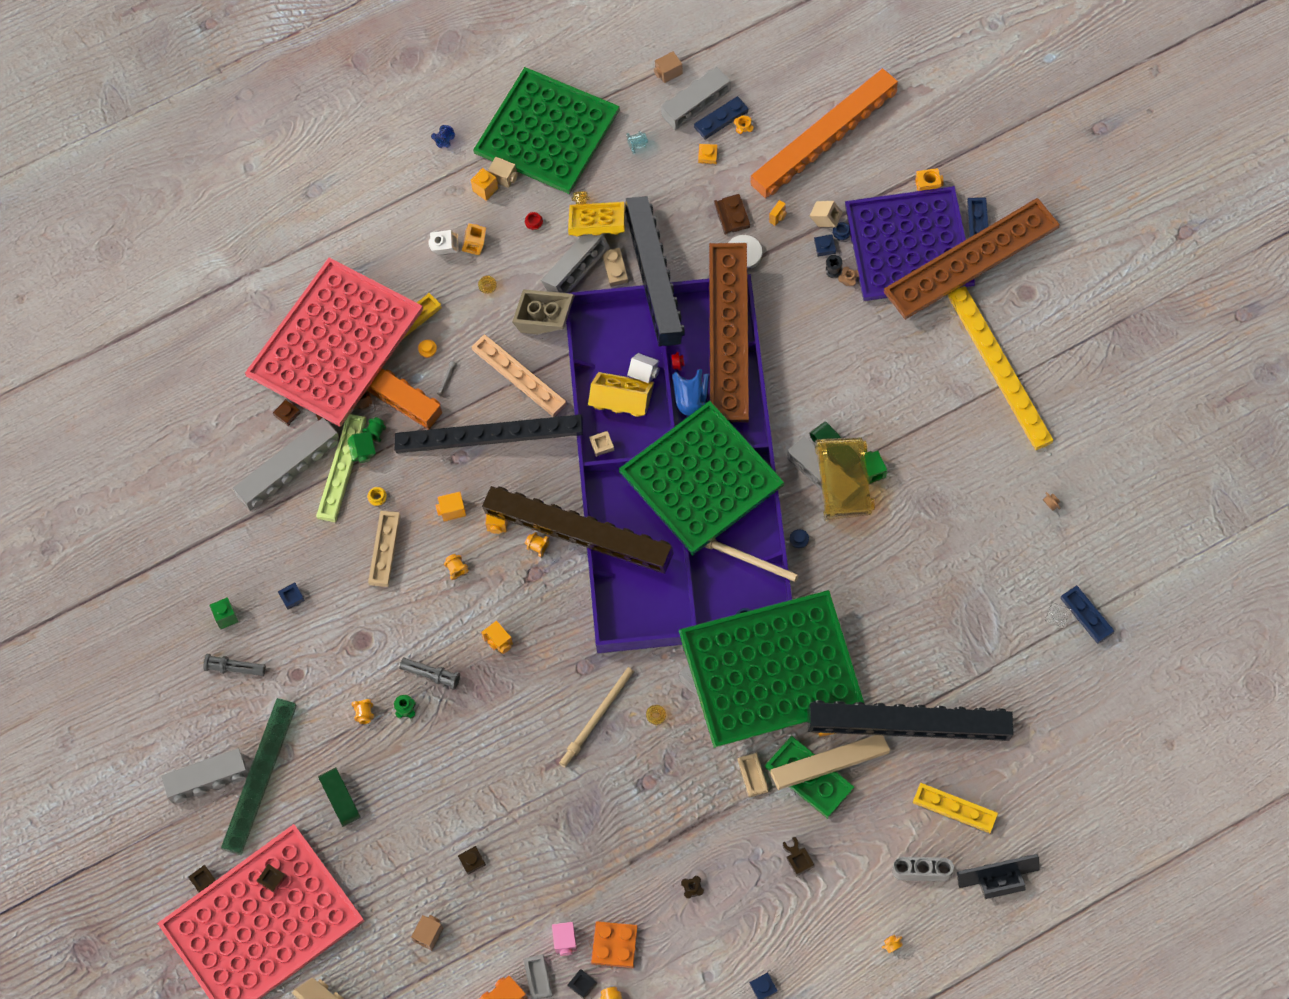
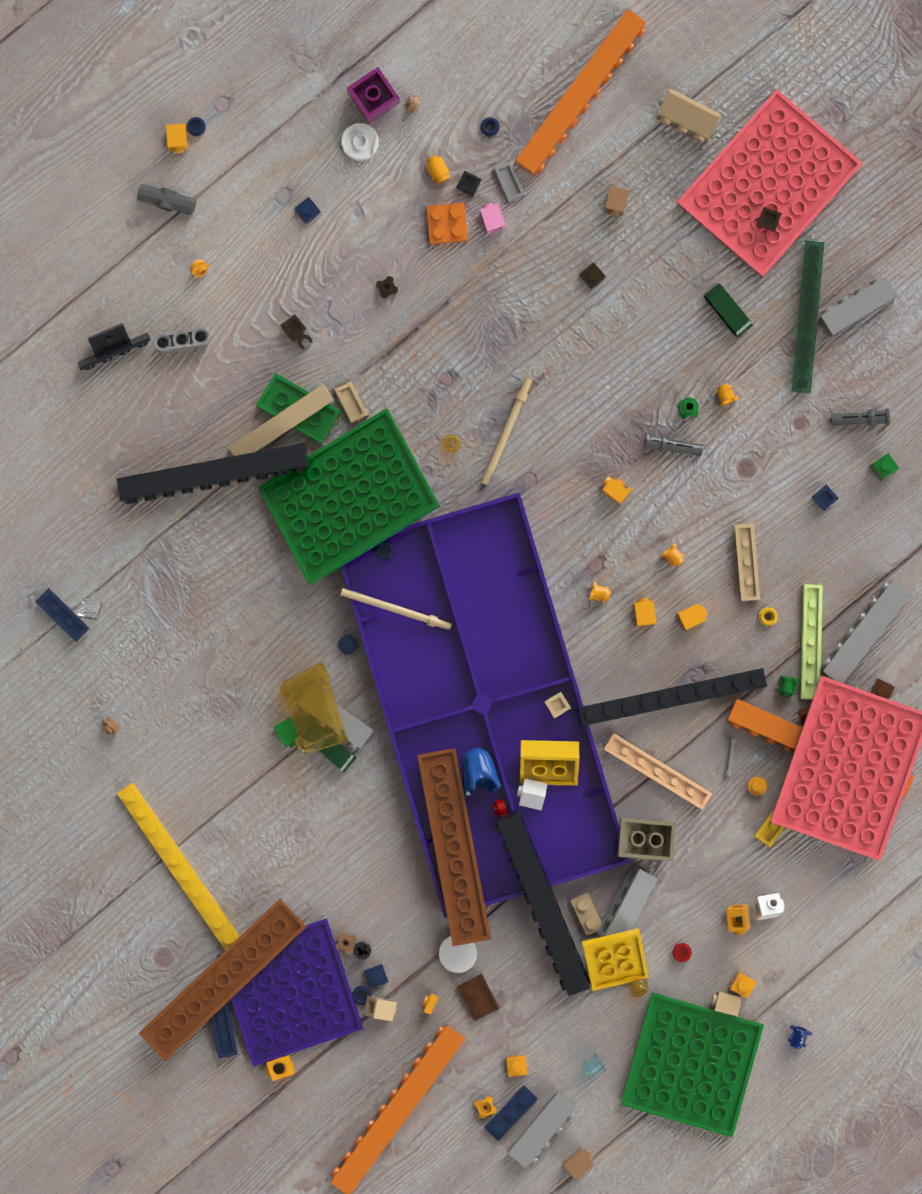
camera: 165 degrees right, 20 degrees up
(201, 878) = (833, 211): dark brown plate -> none
(361, 447) = (795, 662): green brick -> none
(487, 280) = (707, 869): clear yellow plate -> none
(578, 529) = (560, 602): dark brown brick -> none
(701, 477) = (451, 680): green plate -> none
(955, 808) = (161, 403): yellow plate -> none

